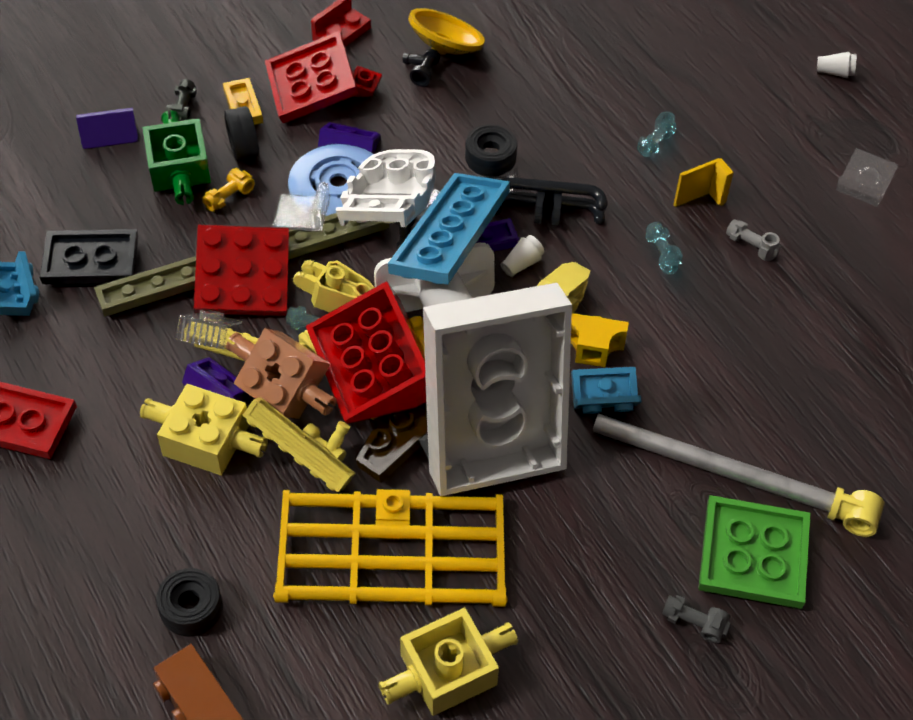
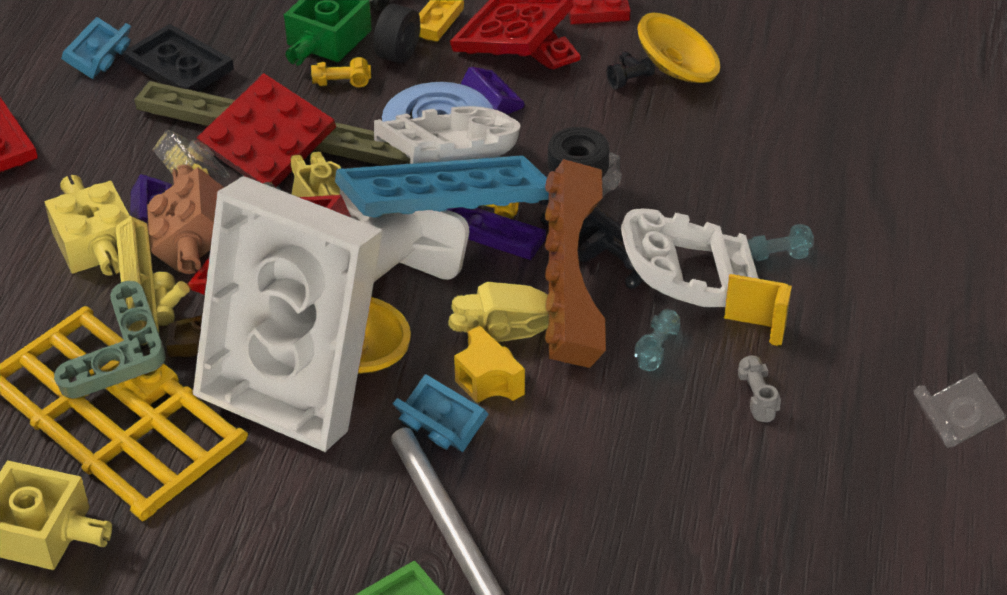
camera: 45 degrees right, 10 degrees down
(302, 211) = (361, 117): clear piece -> none
(369, 500) = (127, 352): none -> sand green beam
(523, 255) = (514, 265): white cone -> none
(599, 175) = (651, 249): none -> white slope
(615, 268) = (575, 323): none -> dark orange arch

